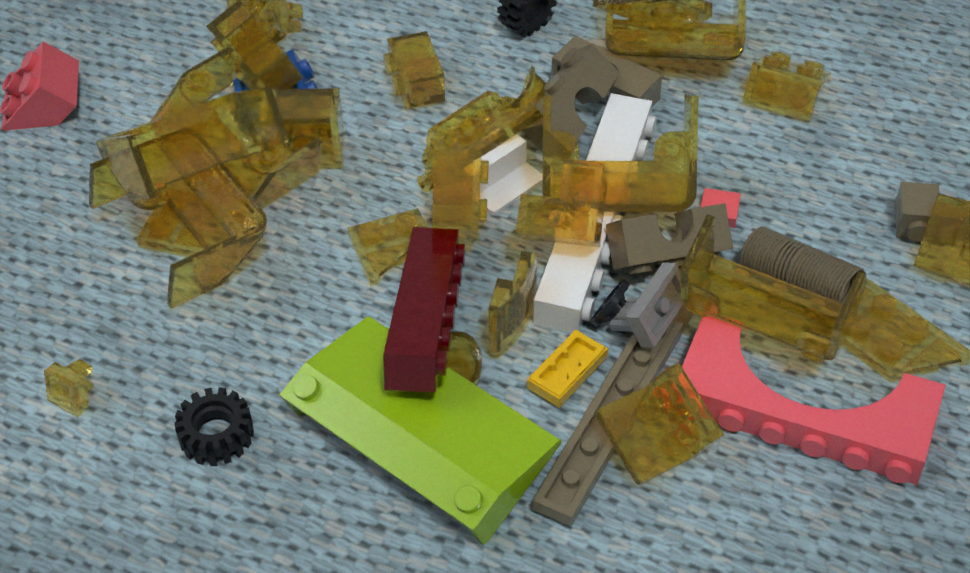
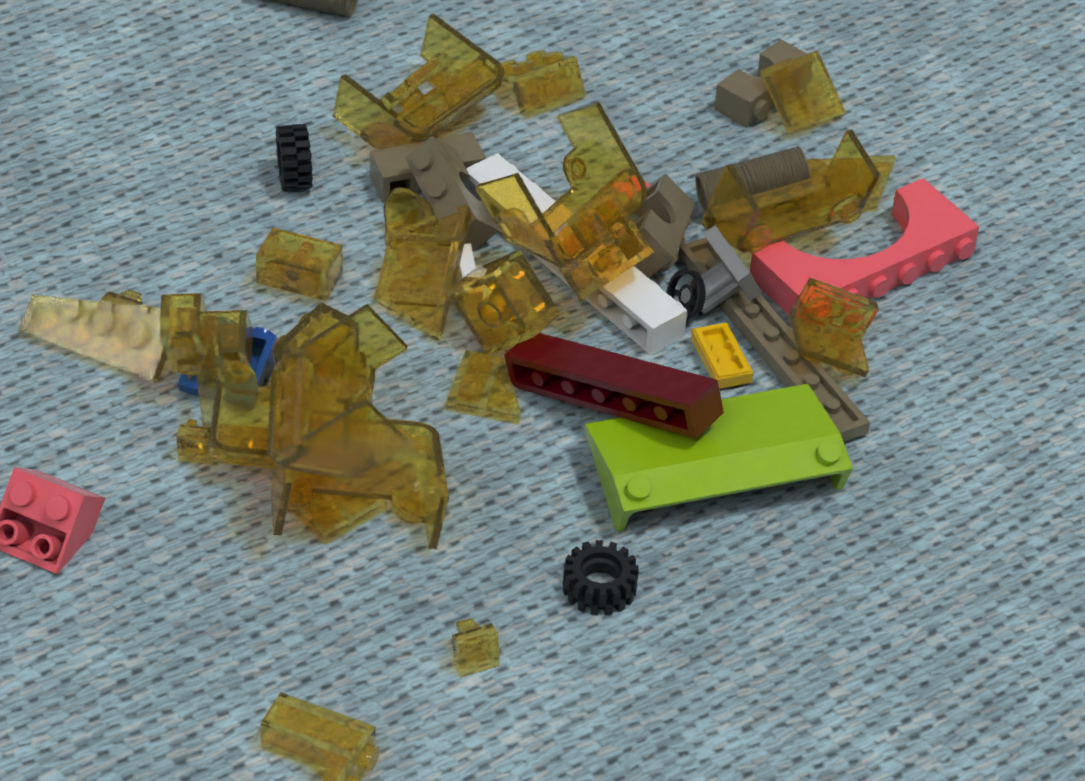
camera: 60 degrees left, 5 degrees down
(512, 306) = (646, 330): clear yellow slope -> none

